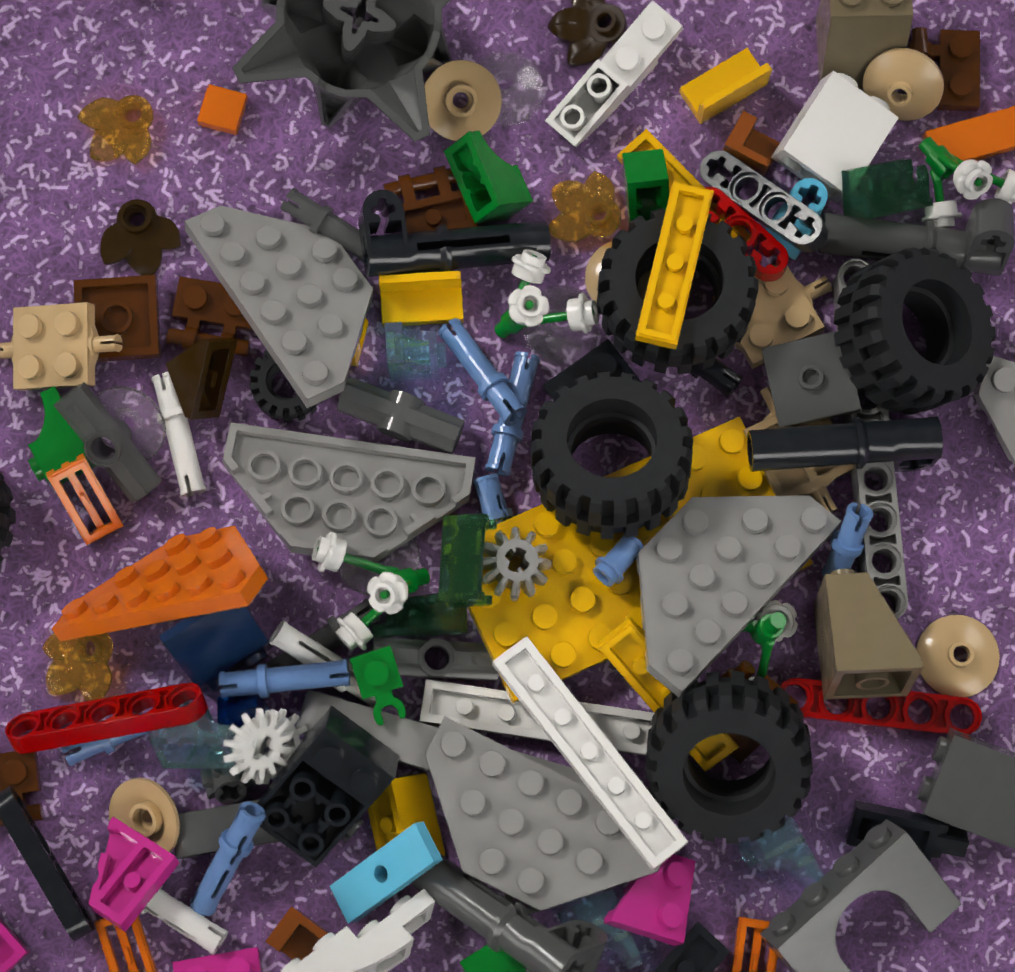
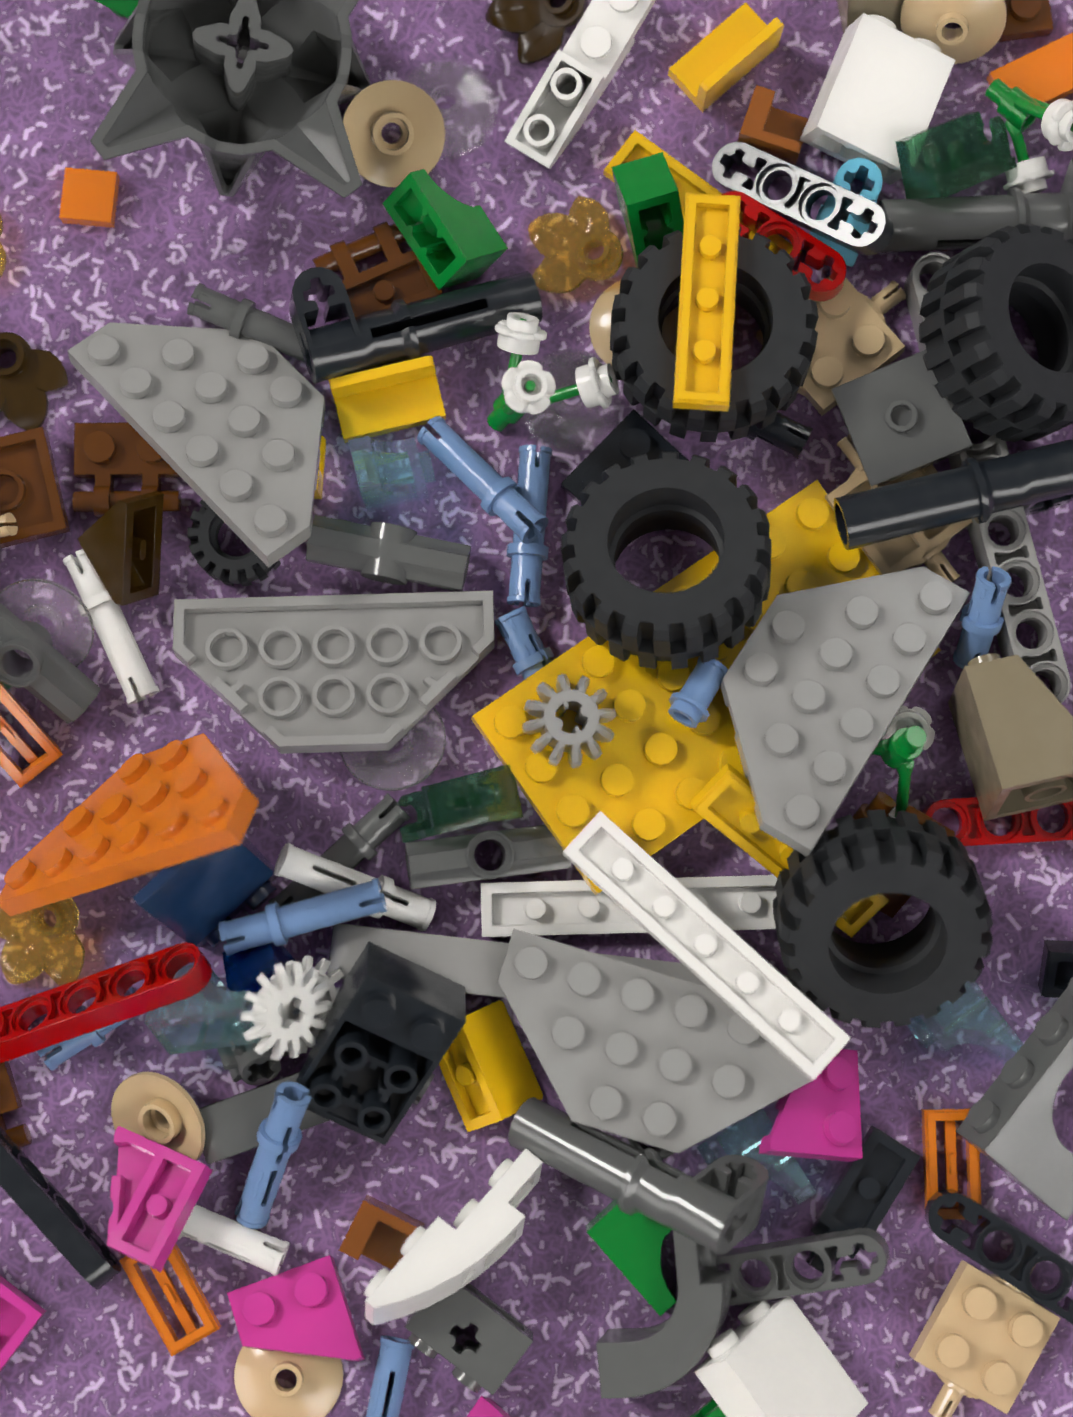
camera: 10 degrees left, 5 degrees up
(378, 676) = (420, 894): green plate -> none
(386, 592) = (412, 787): white plant -> none
(386, 872) = (475, 1137): medium azure tile -> none
(463, 559) = (503, 728): clear green hinge -> none

